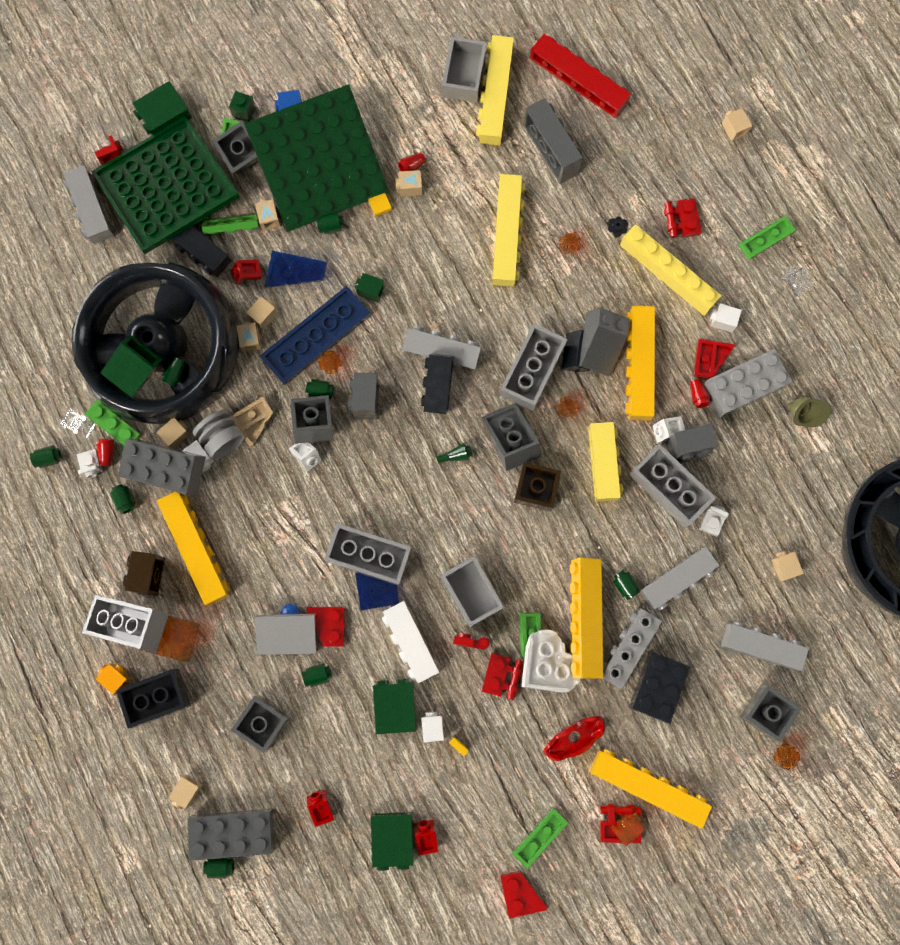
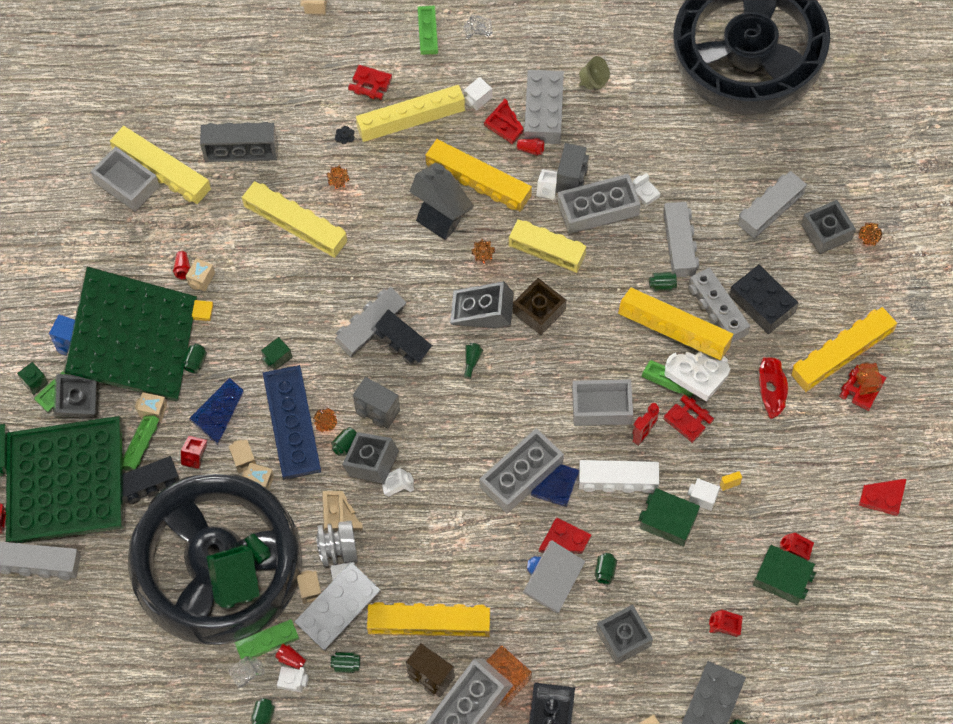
camera: 60 degrees left, 15 degrees down
(533, 367) = (432, 257): light grey brick -> none
(540, 838) = (842, 455): bright green plate -> none
(580, 75) = (191, 94): red brick -> none
(787, 565) = (713, 155): tan brick -> none

